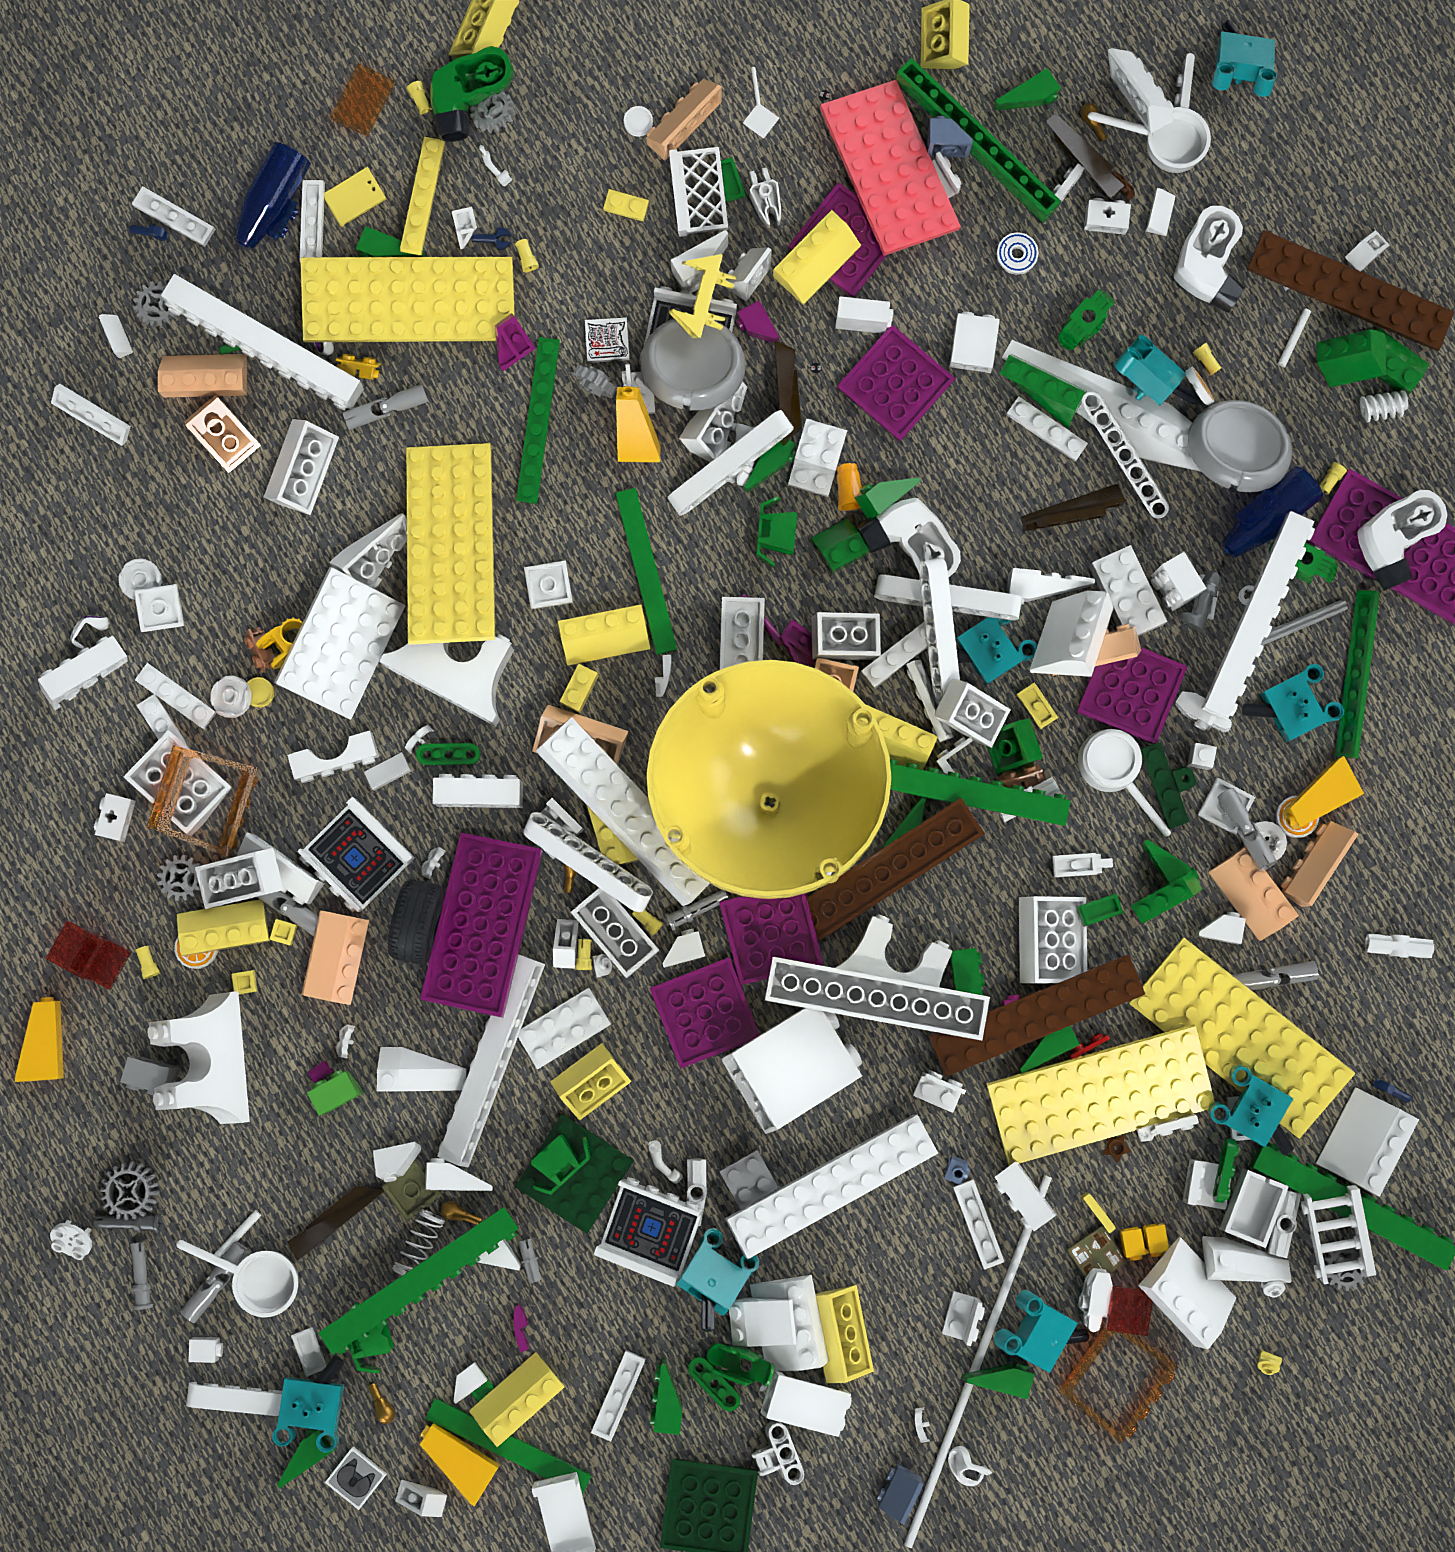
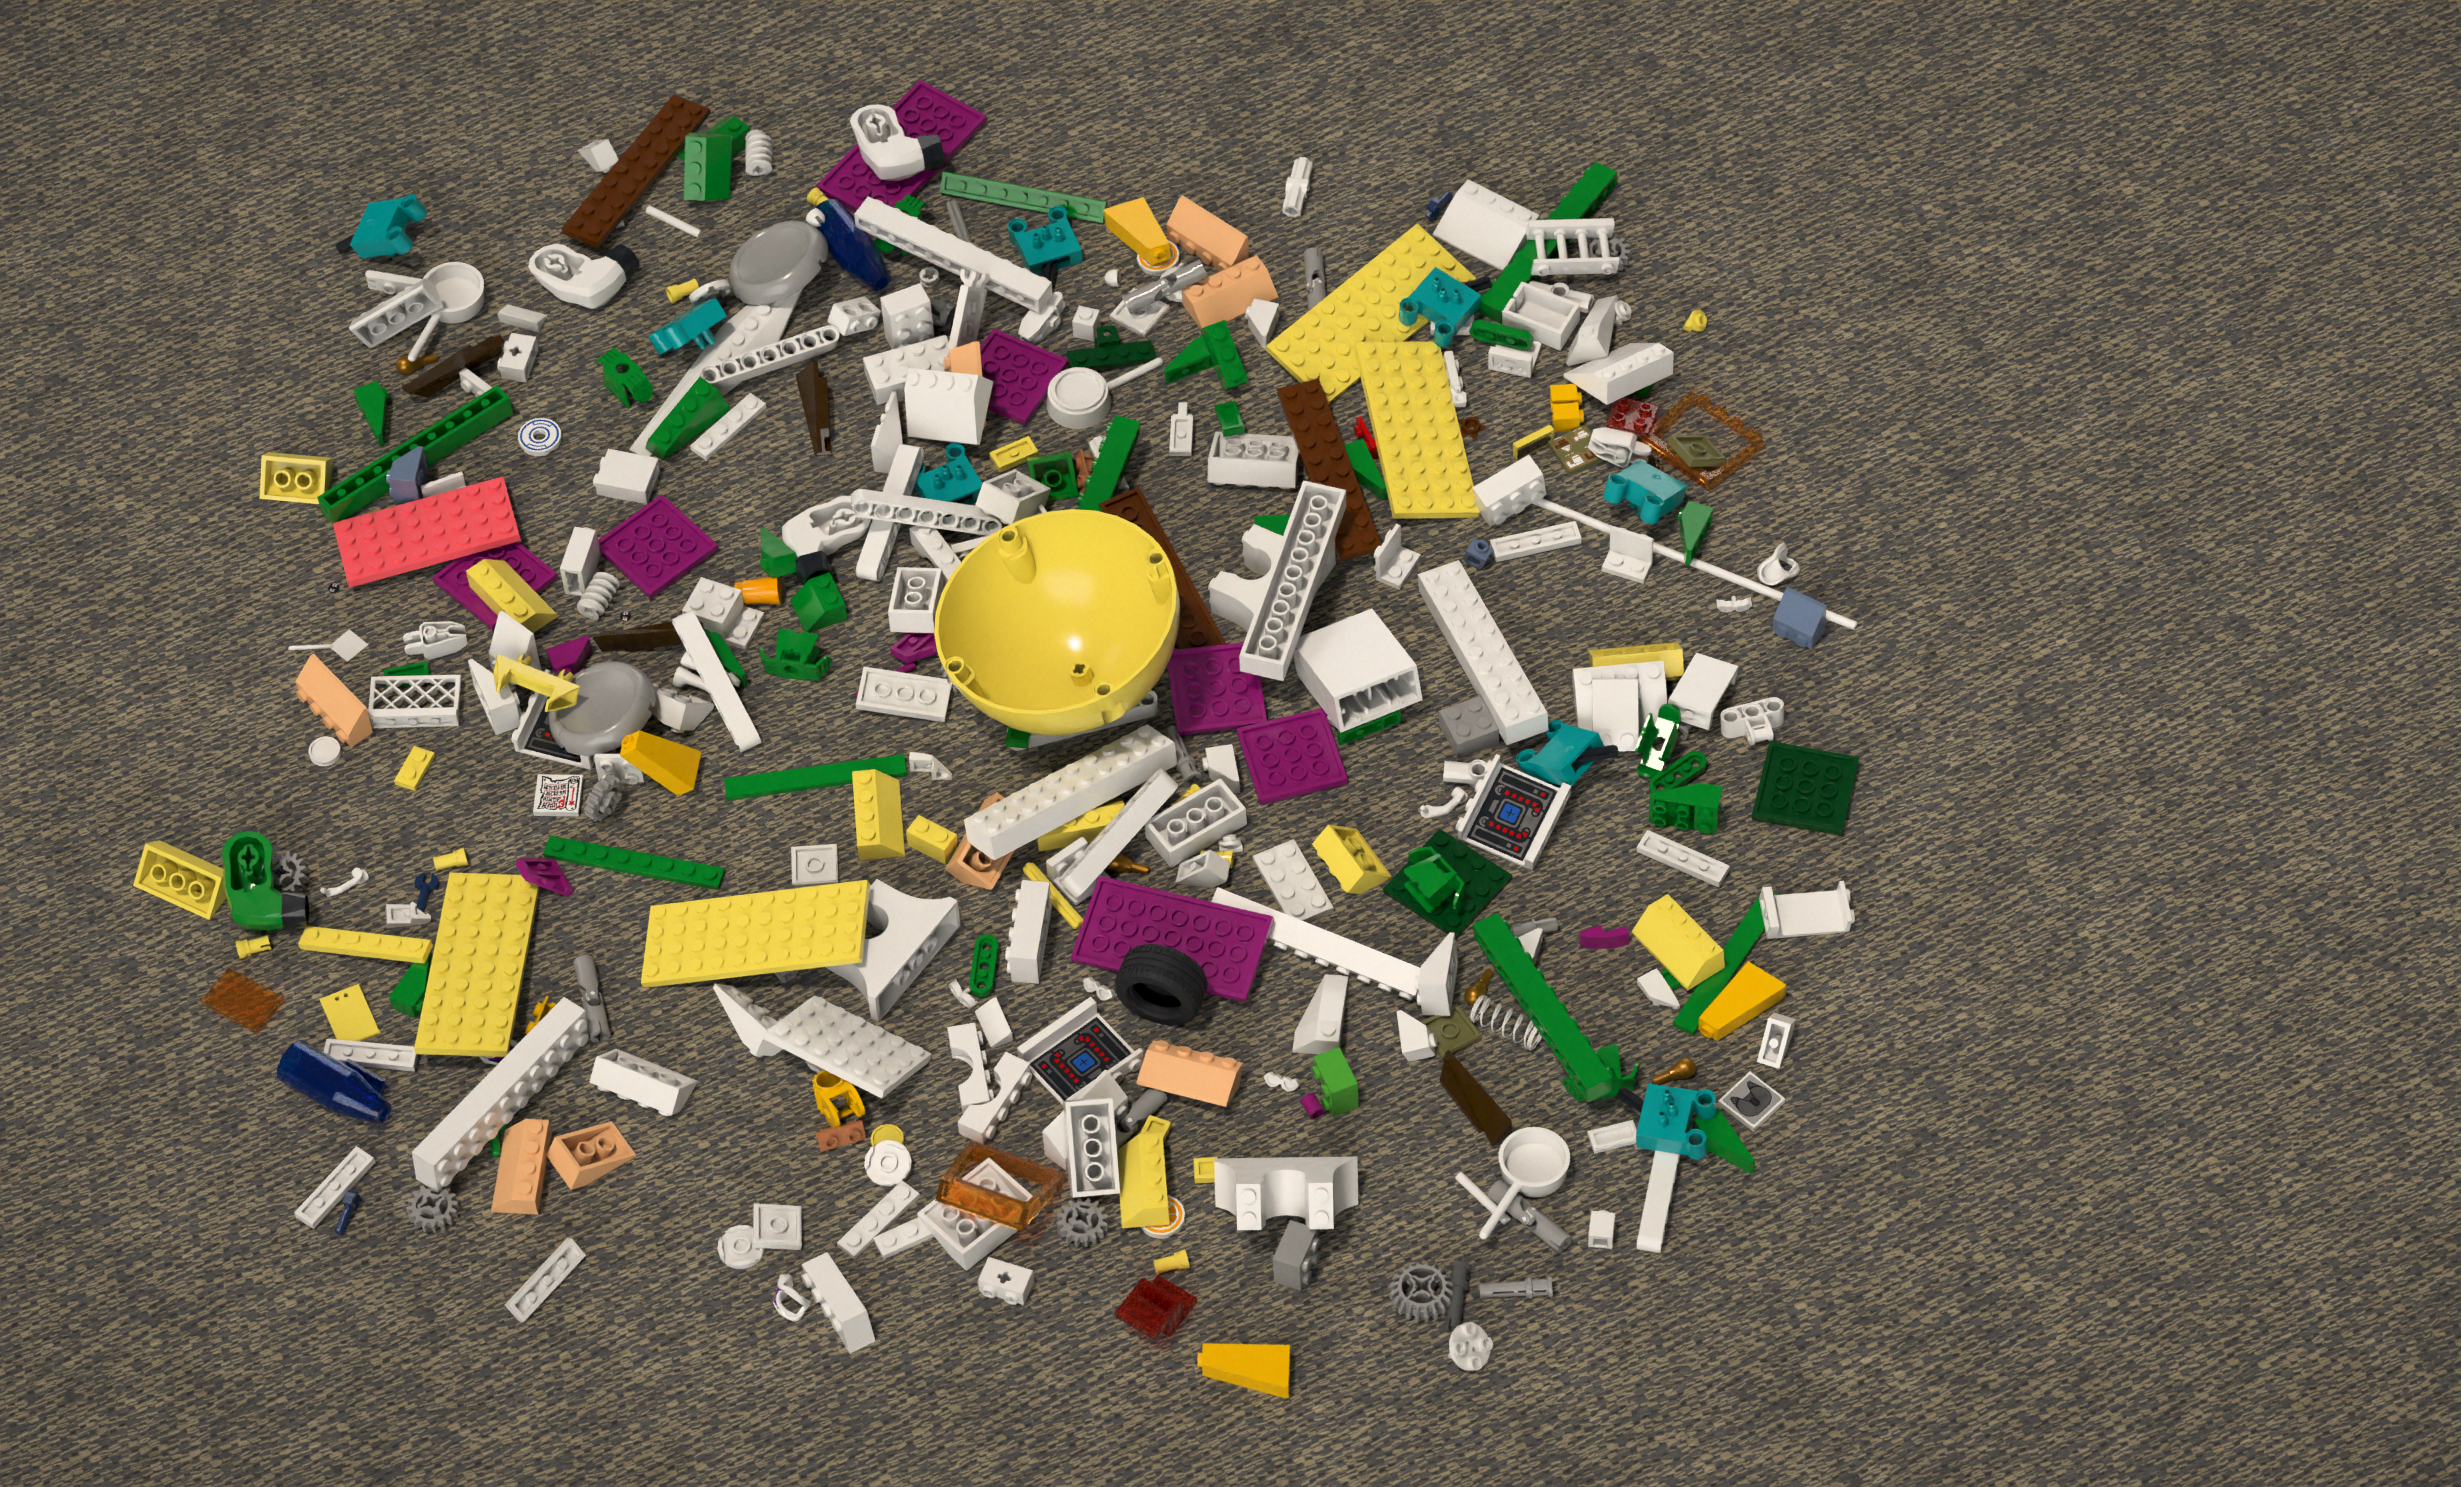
camera: 80 degrees left, 30 degrees down
(115, 335) = (459, 1254): white slope -> none
(279, 772) = (980, 1121): none -> white arch
(532, 806) = (1057, 899): none -> light yellow axle
(831, 338) = (598, 595): none -> white piece
(1099, 1377) = (1696, 450): none -> olive tile
(1187, 526) = (854, 316): none -> white brick
(1189, 639) = (968, 309): none -> white tile
(1265, 773) = (1112, 278): none -> white hinge
(1290, 473) = (815, 217): none -> white hinge

